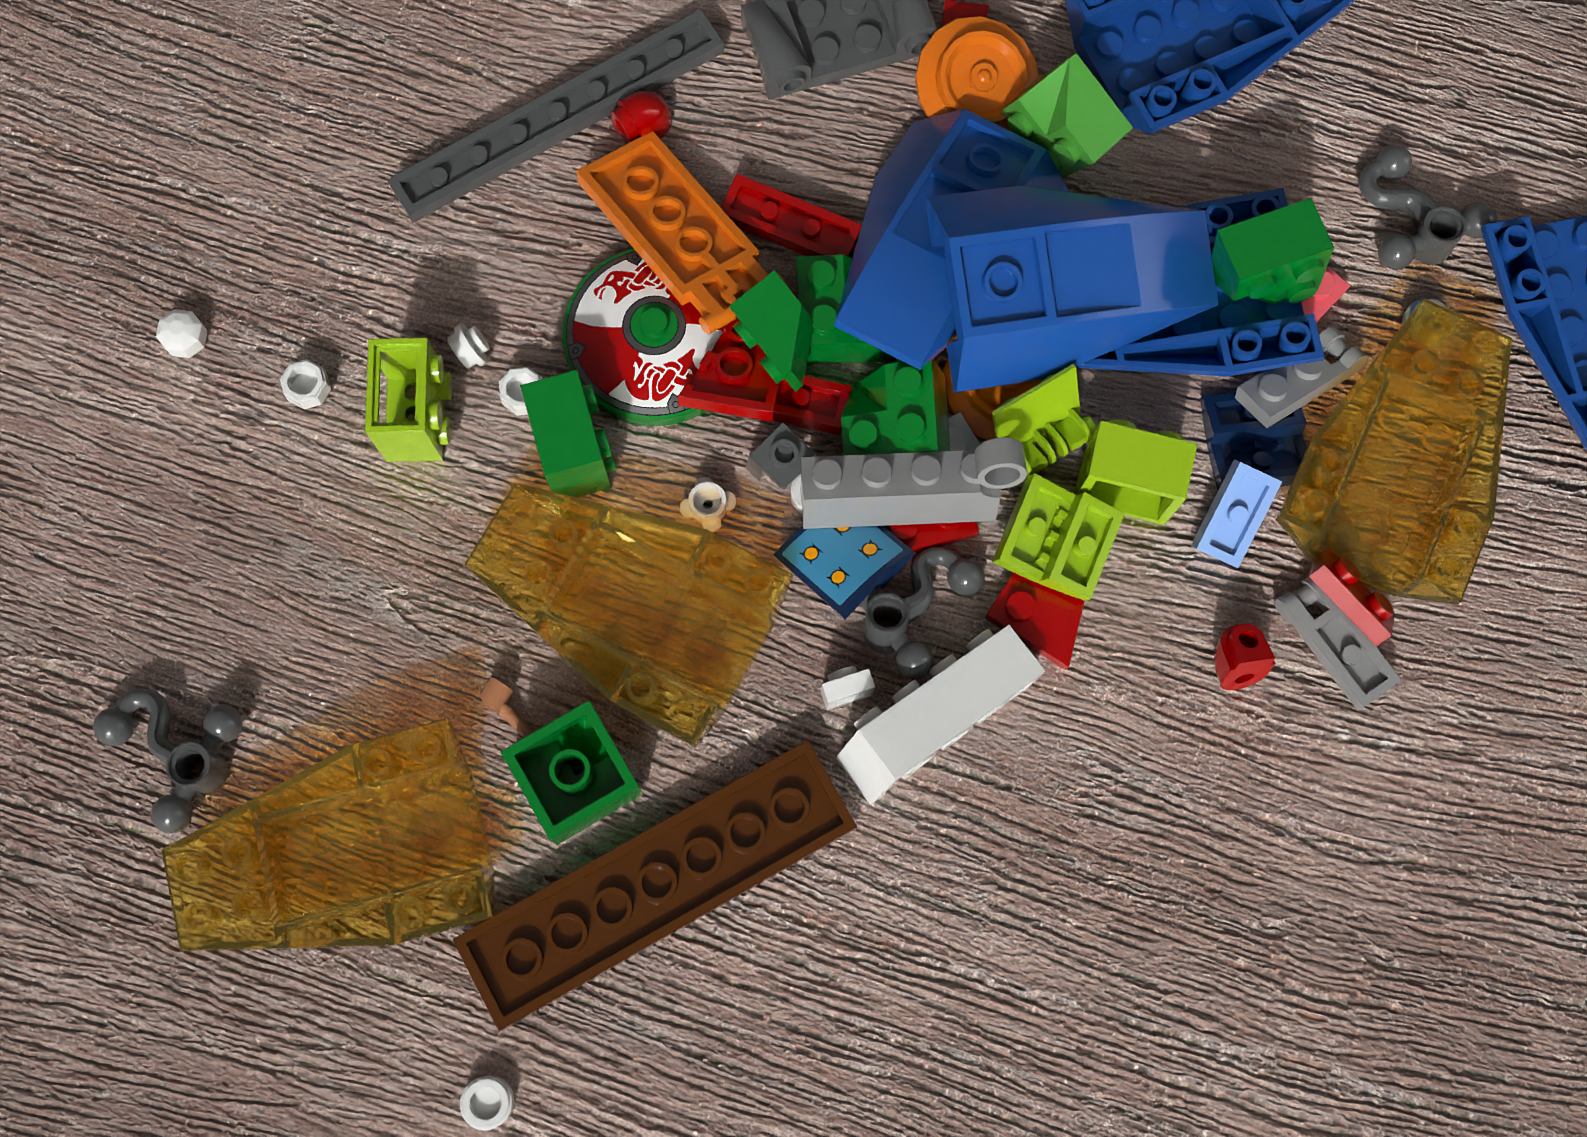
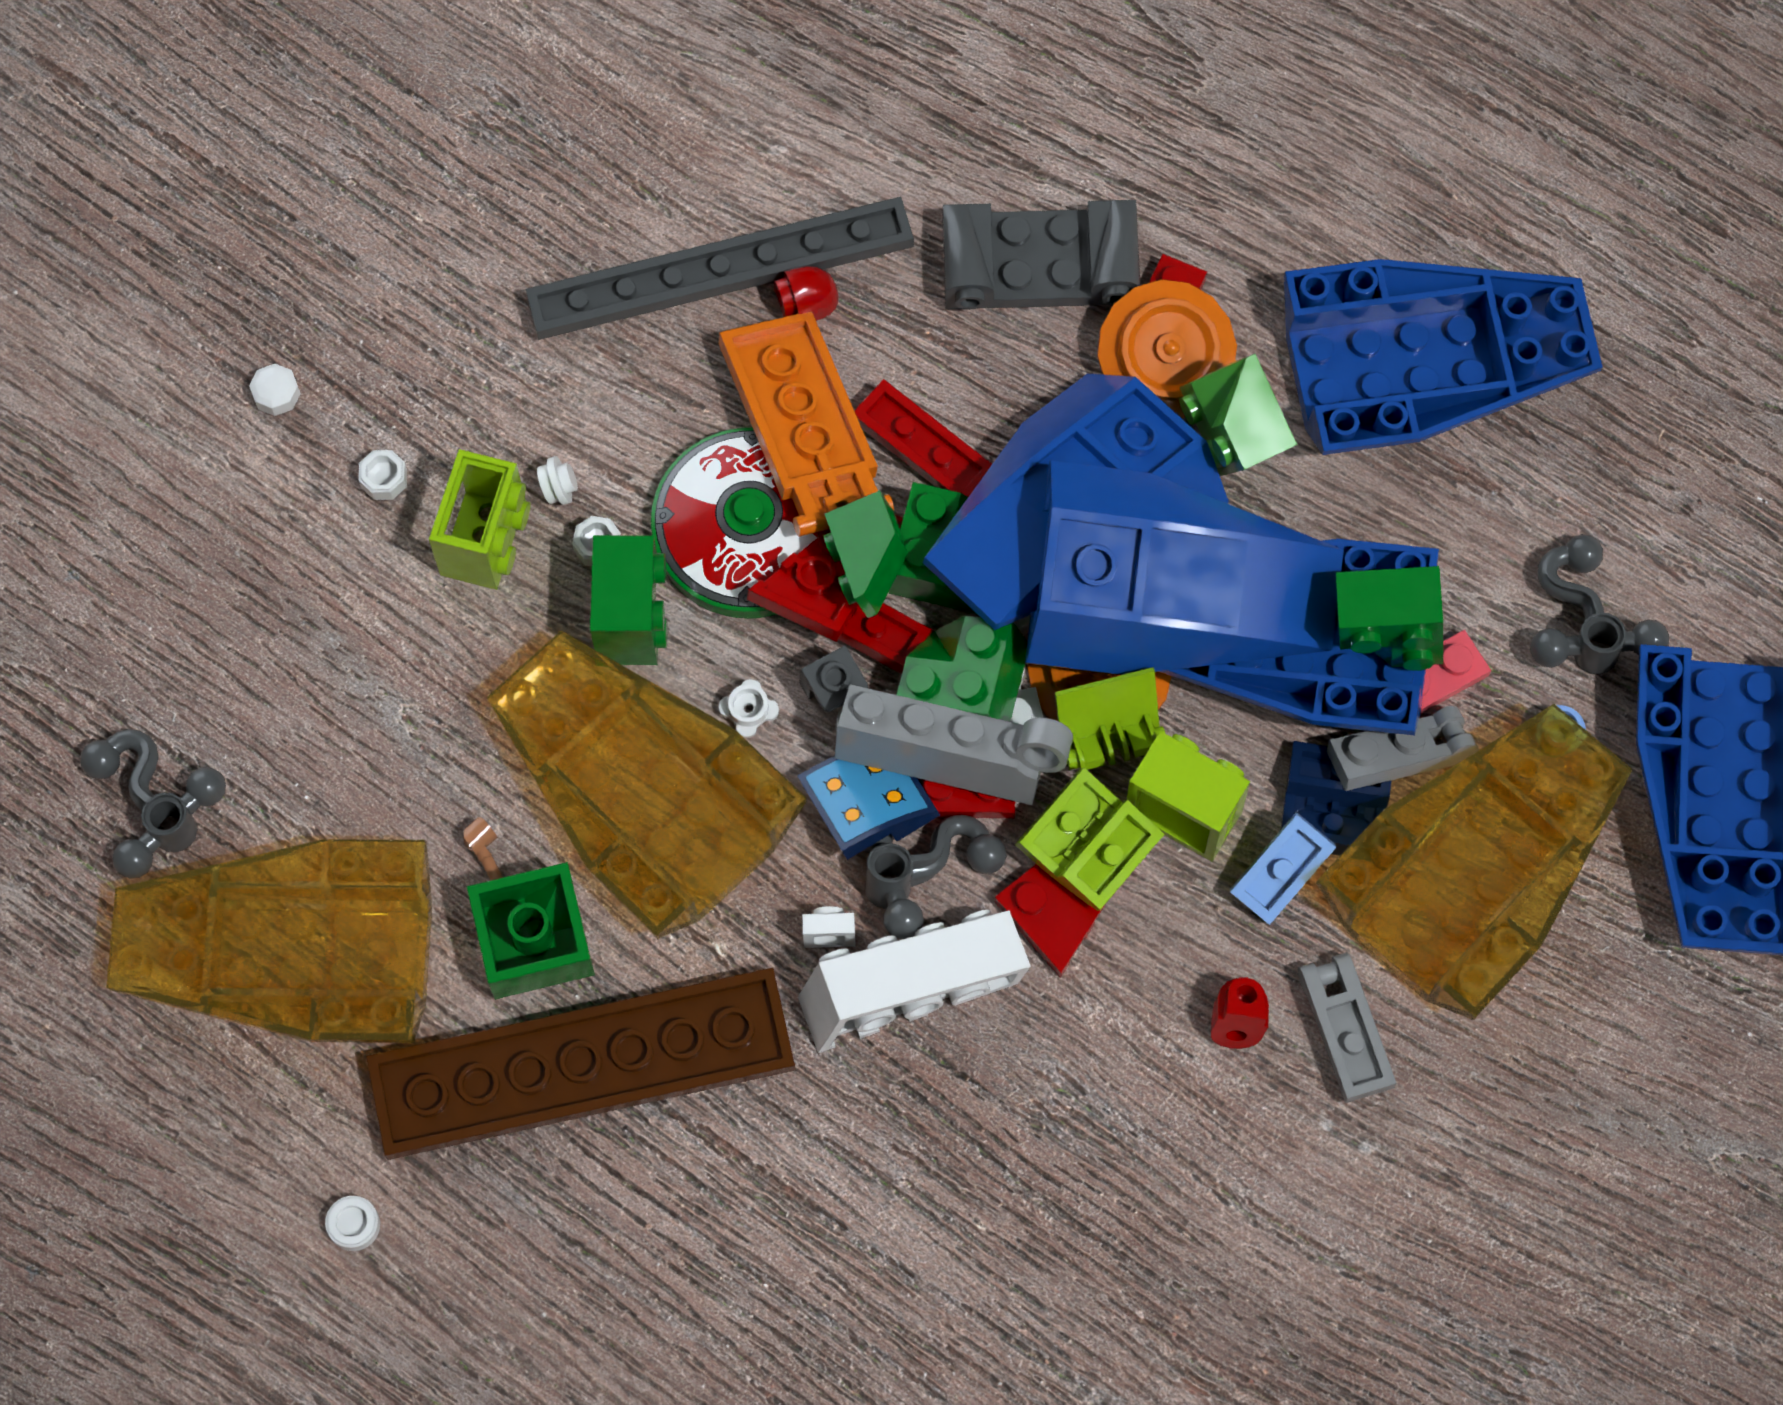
camera: 20 degrees right, 5 degrees down
(1342, 584) = (1373, 984): red plate -> none

